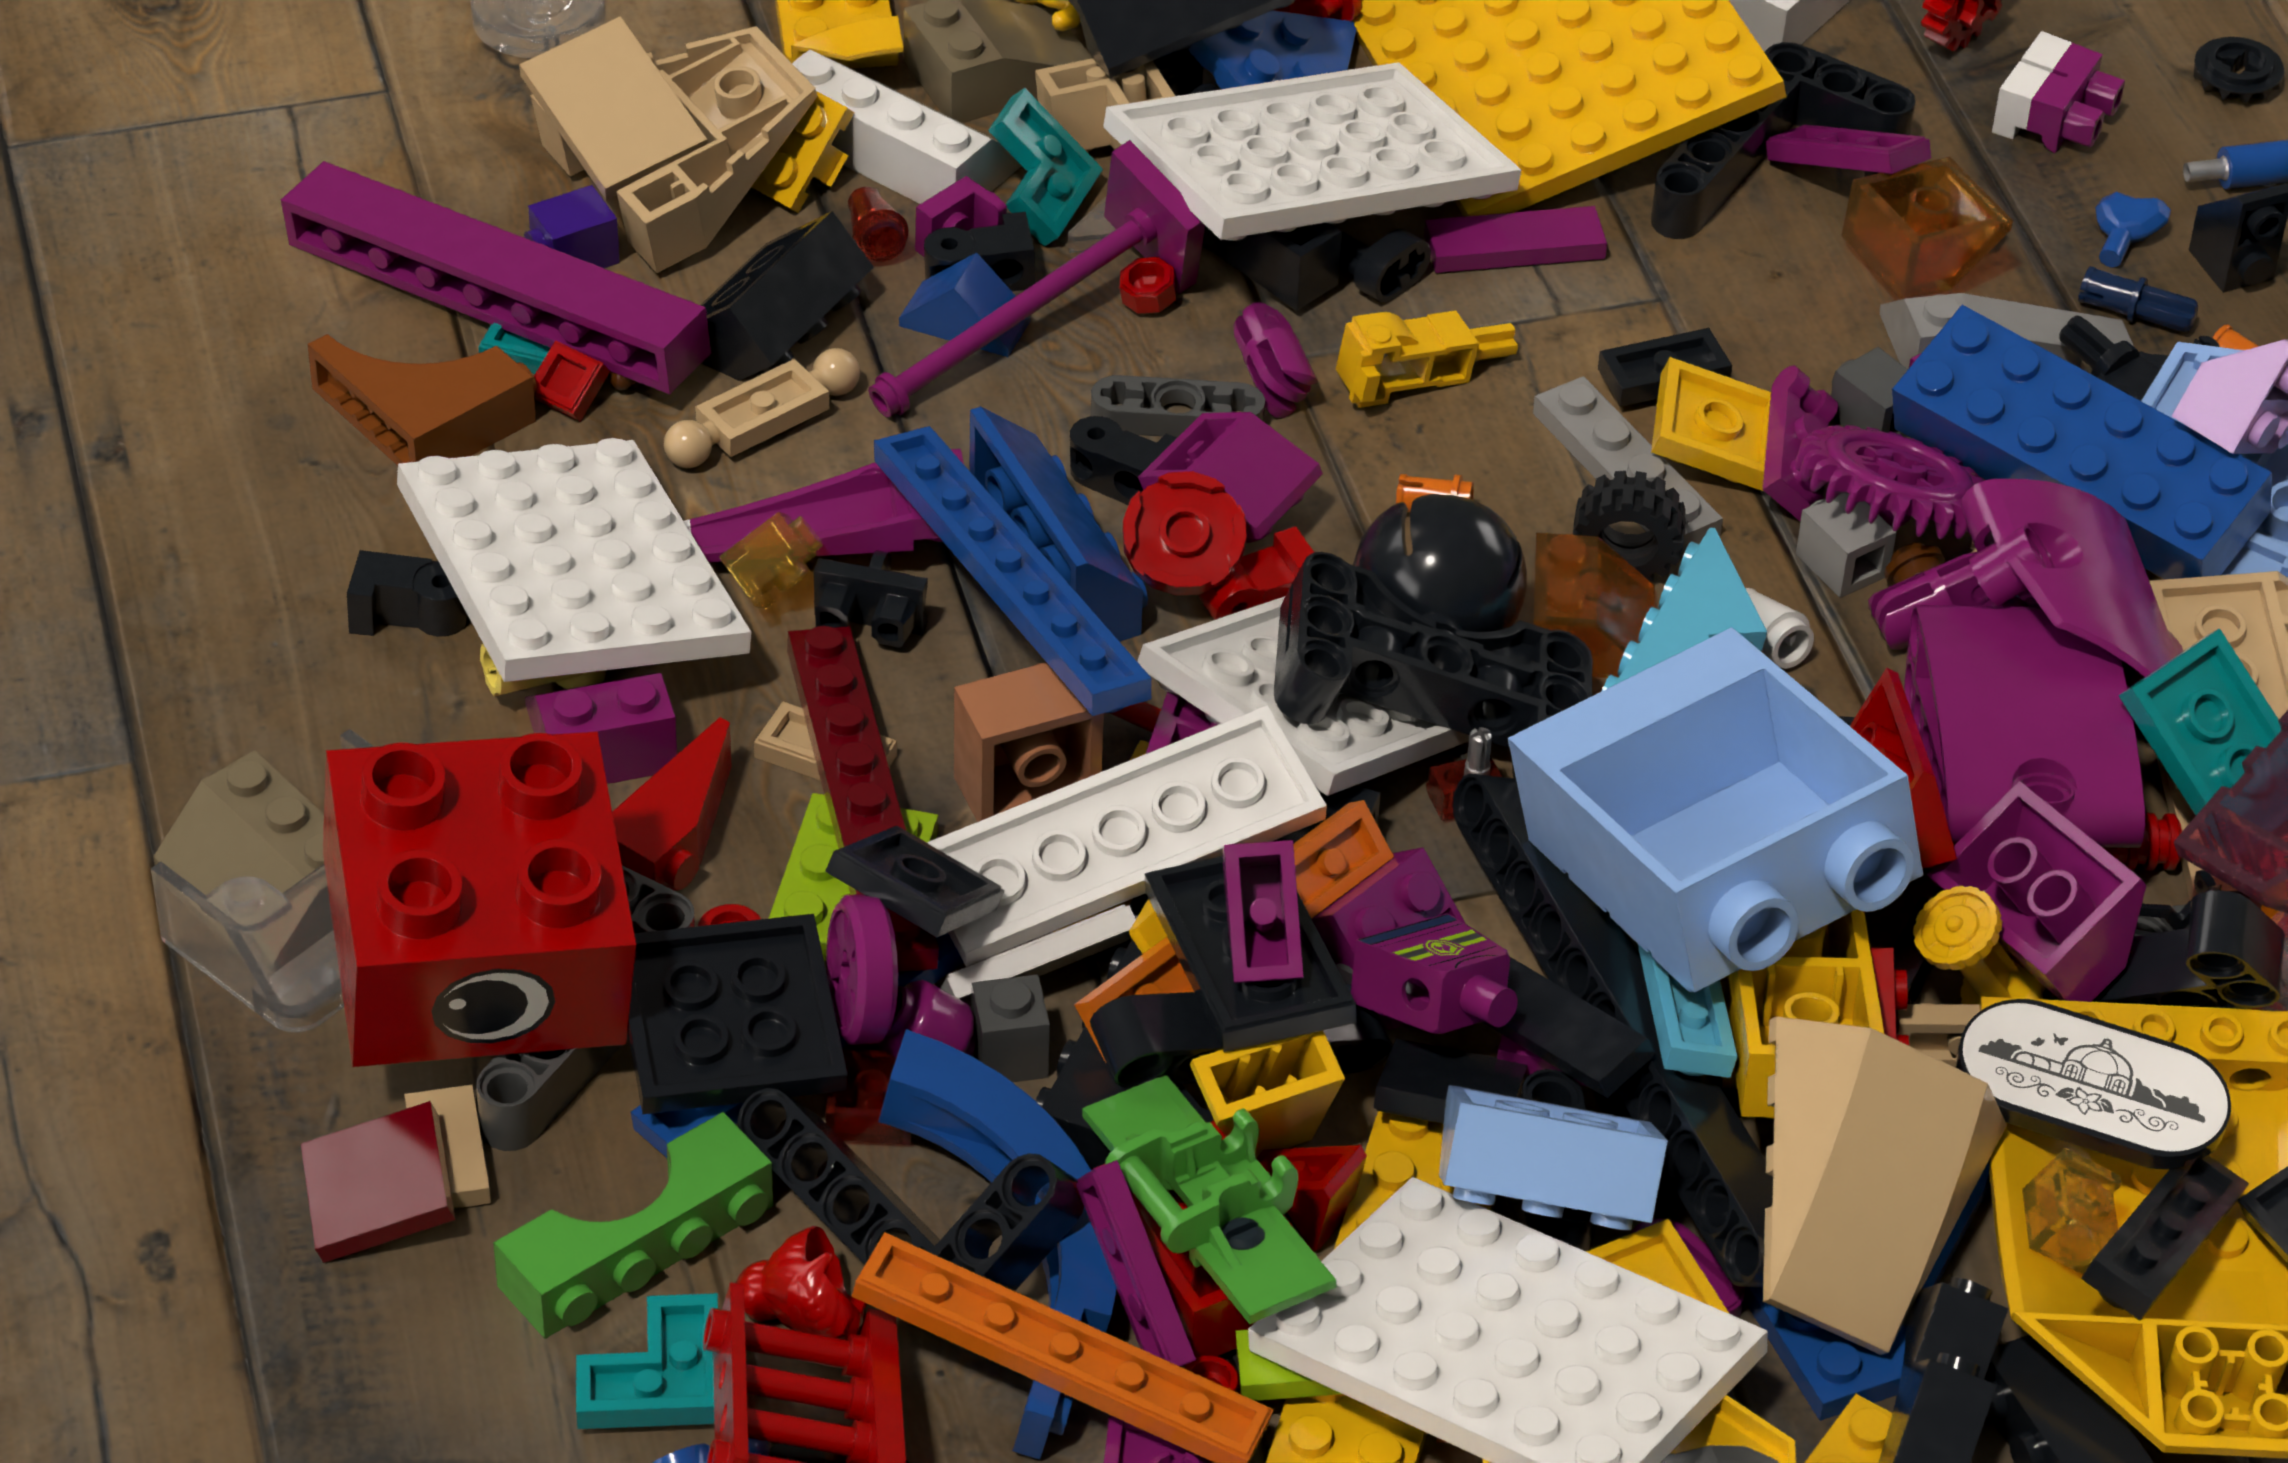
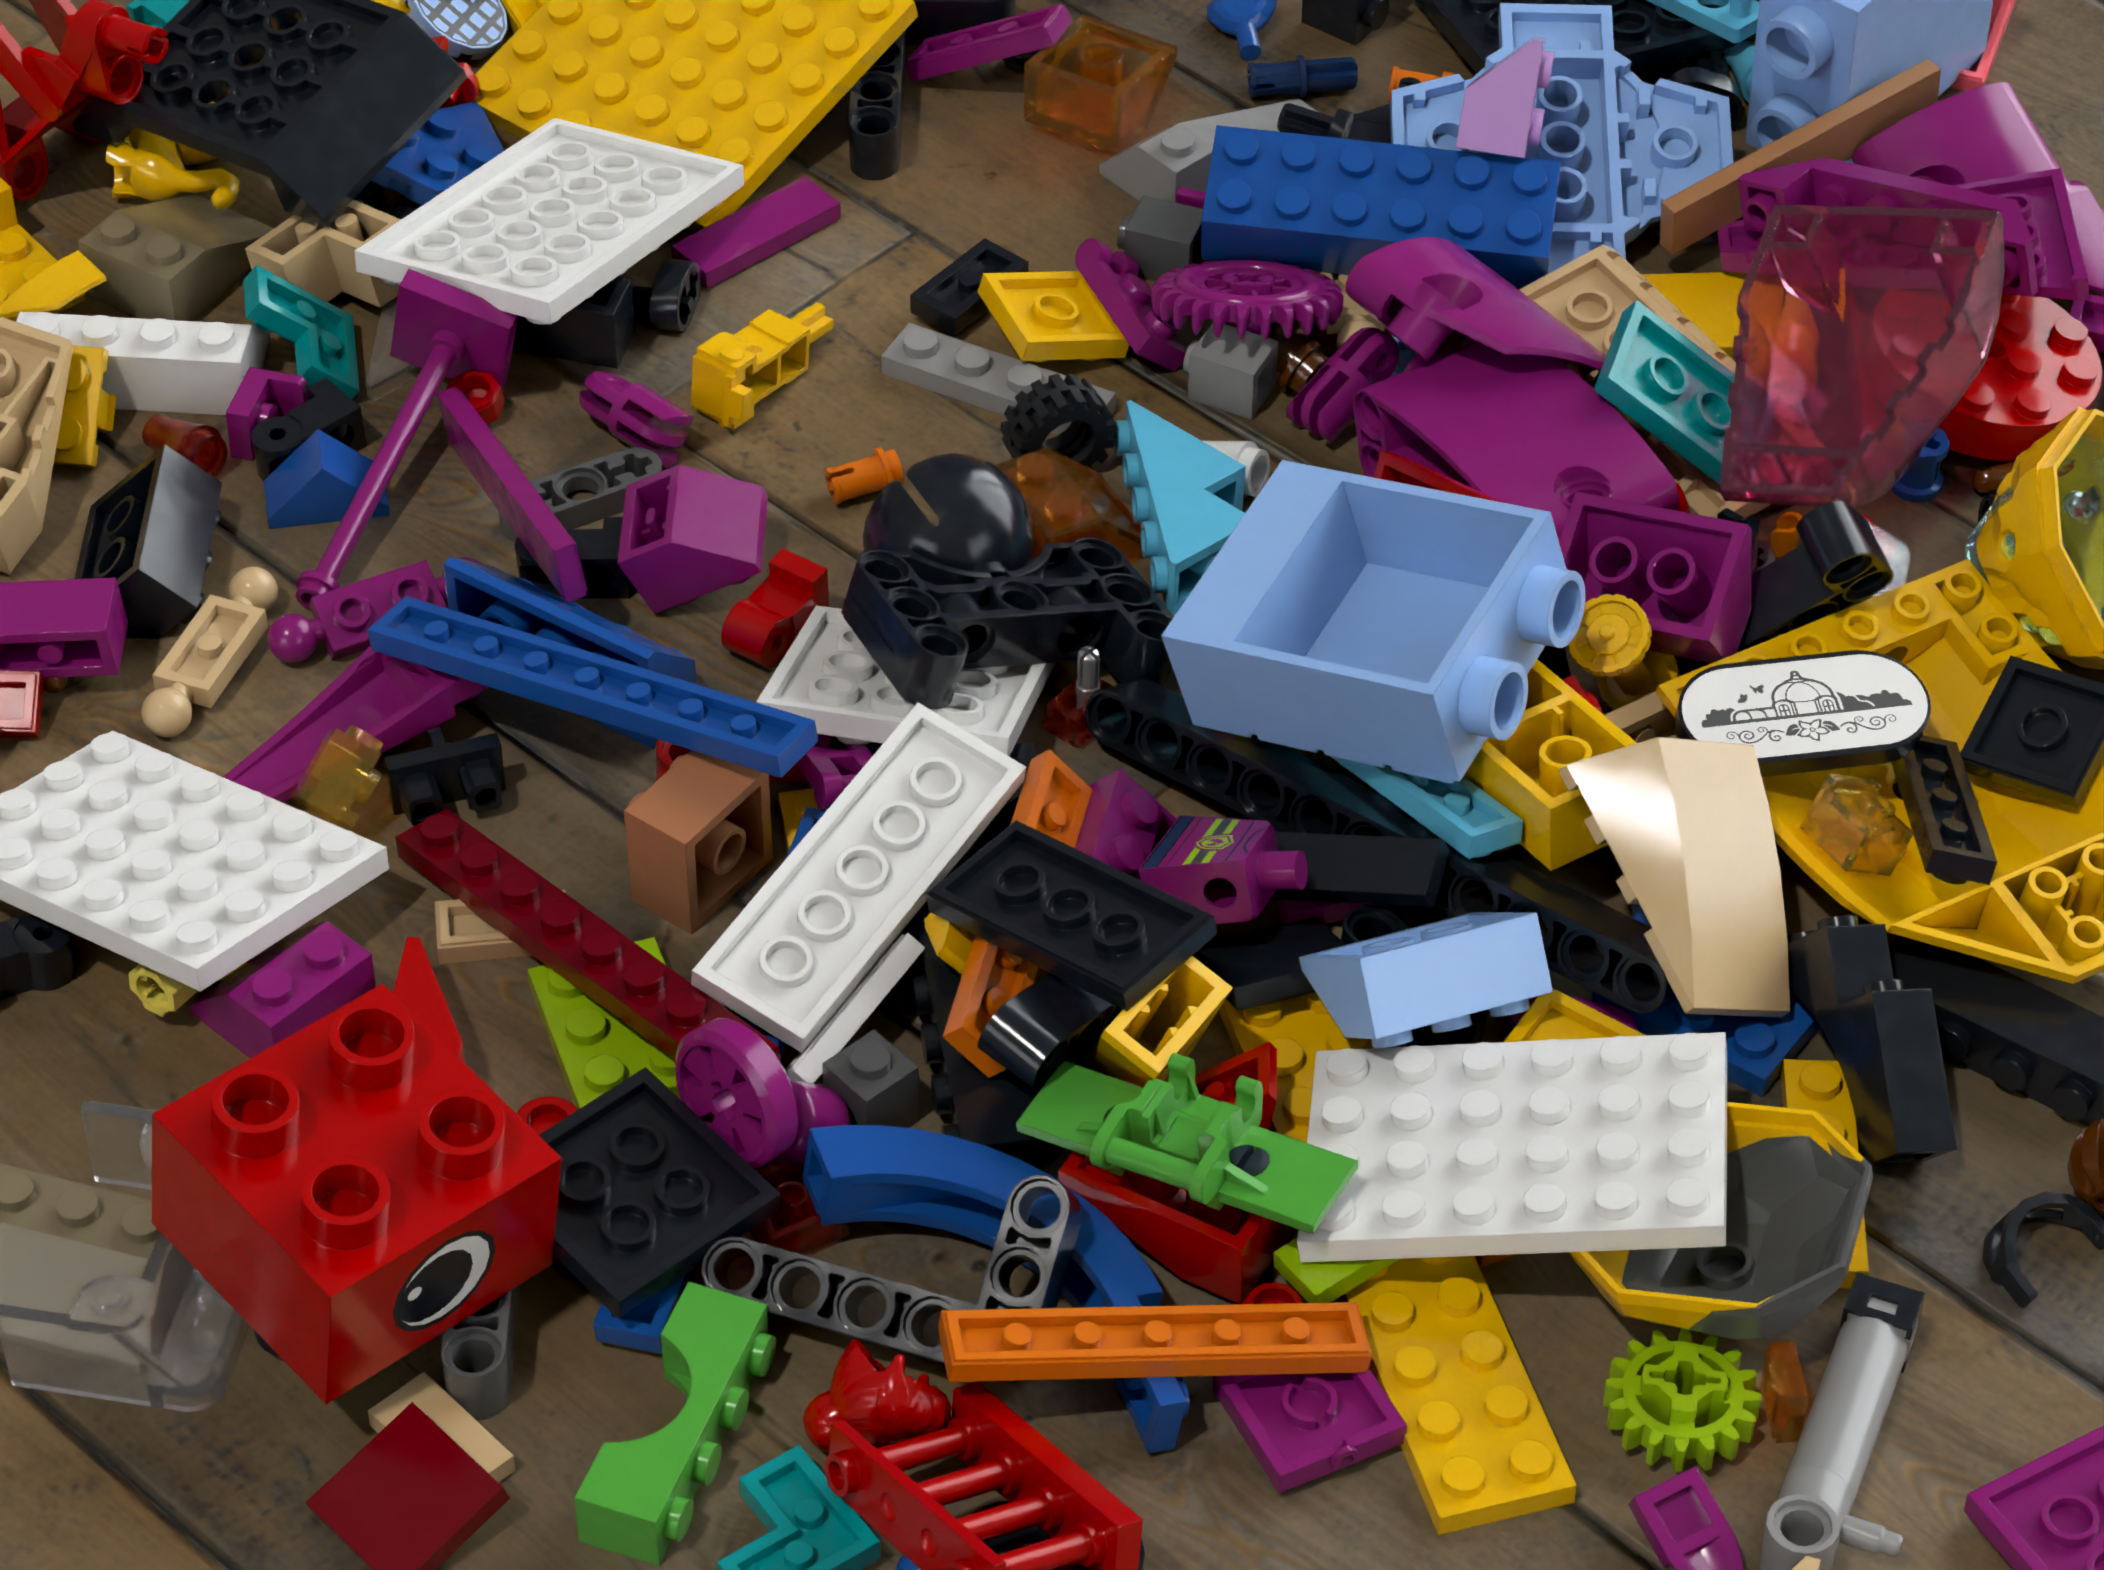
camera: 30 degrees left, 0 degrees up
(840, 426) = (348, 612): none -> magenta plate
(916, 880) = (737, 990): black tile -> none
(1095, 378) = (513, 494): none -> magenta tile
(1133, 1264) = (1161, 1233): magenta tile -> none
(1184, 533) = (700, 594): red tile -> none
(1262, 911) = (1081, 873): magenta slope -> none

